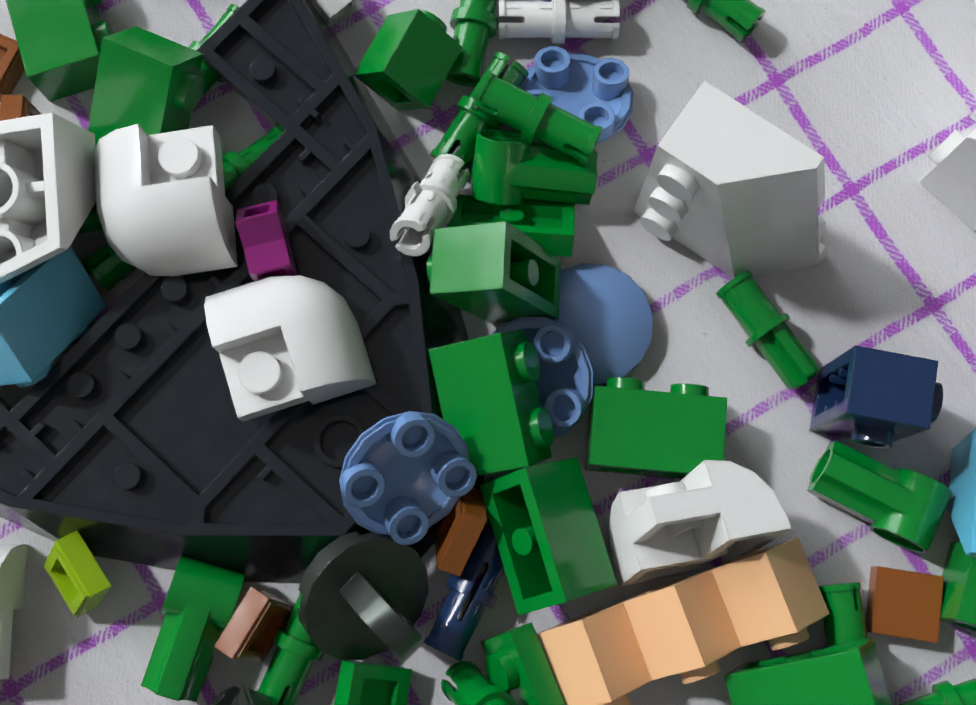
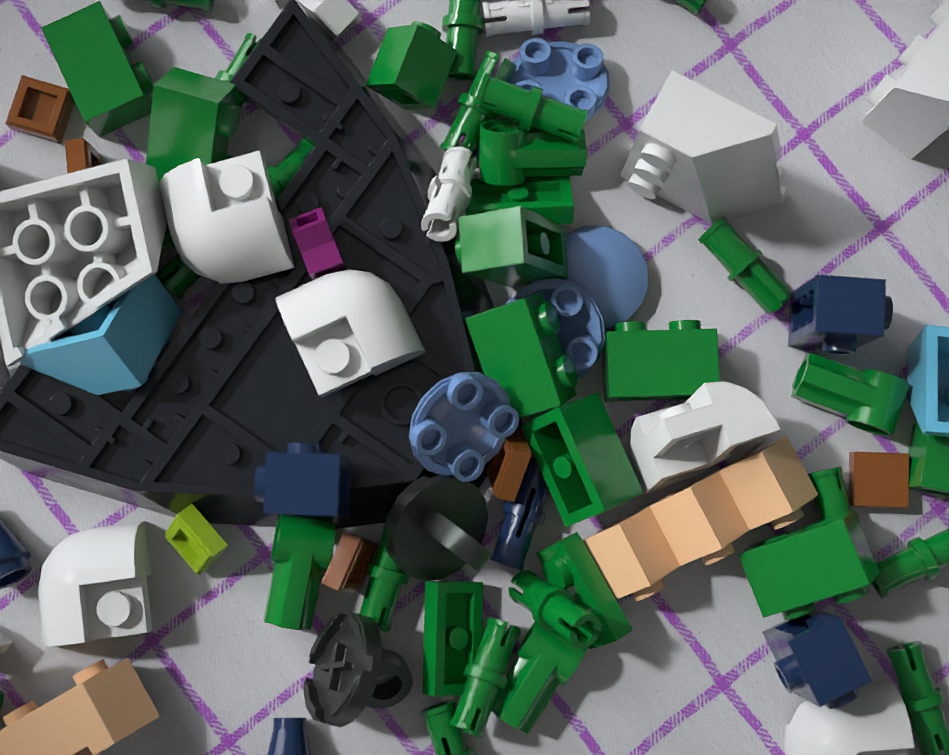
camera: 10 degrees left, 5 degrees up
(200, 521) = (304, 482): none -> dark blue brick

